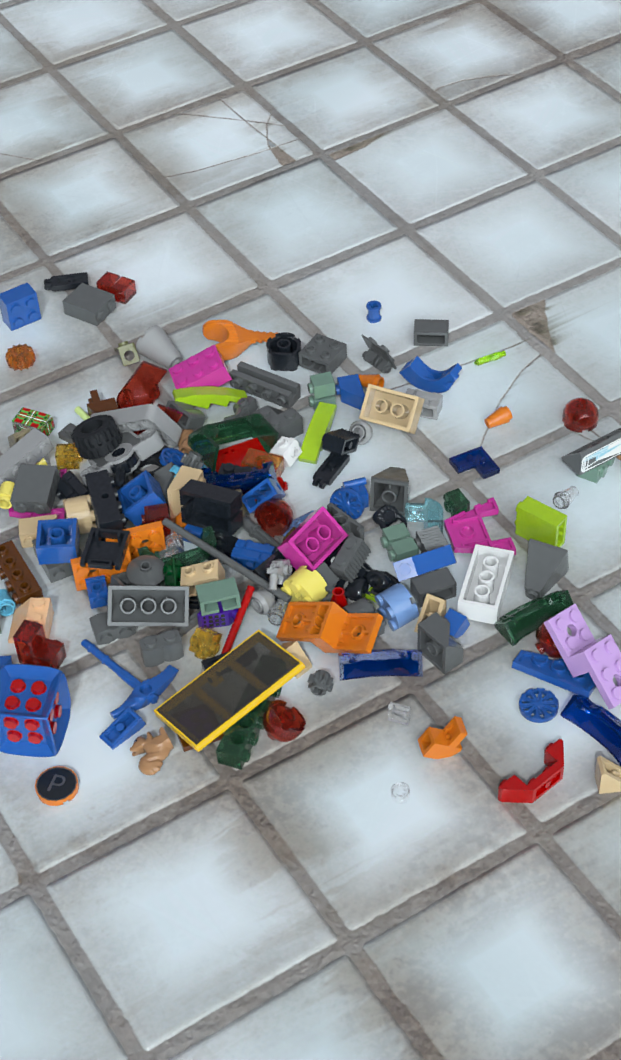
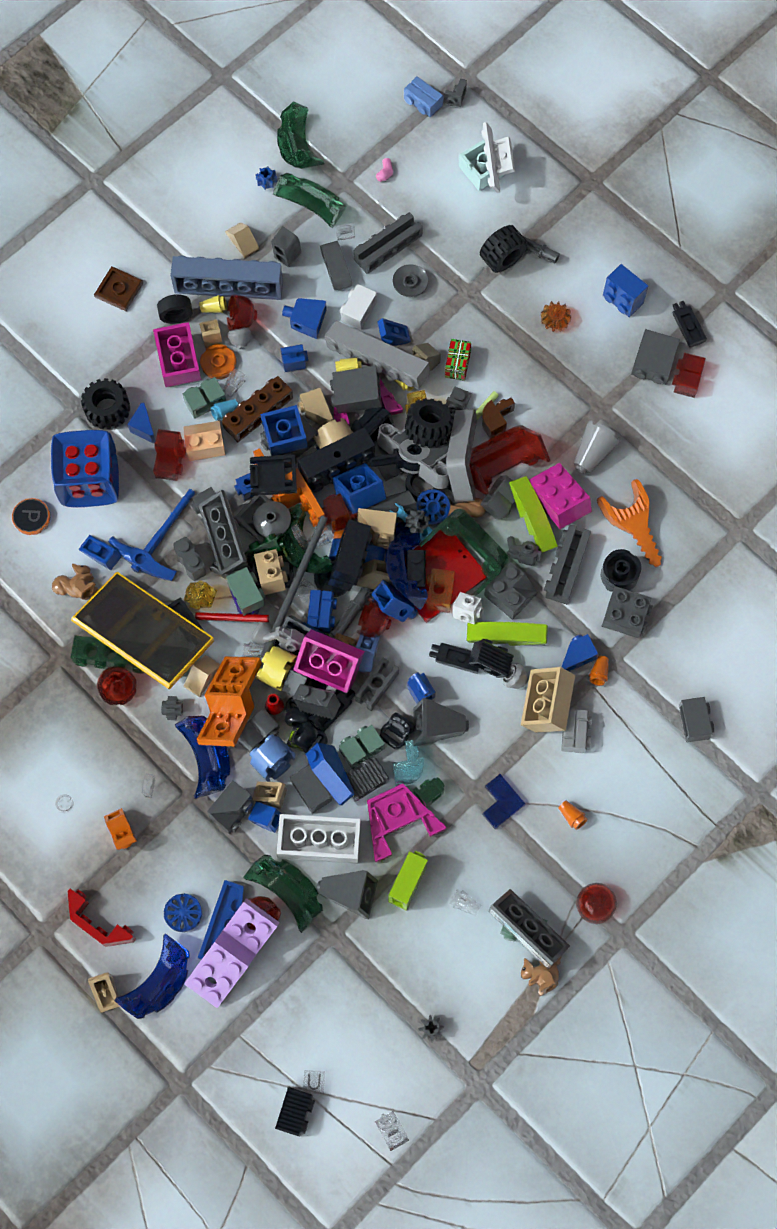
camera: 75 degrees right, 25 degrees up
(125, 346) = (593, 411): bracket -> none
(321, 389) = (560, 623): sand green piece -> none
(347, 502) = (401, 683): blue wheel -> none
(373, 311) = (721, 649): blue bush -> none
(378, 355) = (639, 670): dark grey hinge -> none
(428, 379) = (617, 729): blue arch -> none
(492, 357) = (672, 791): clear neon green piece -> none

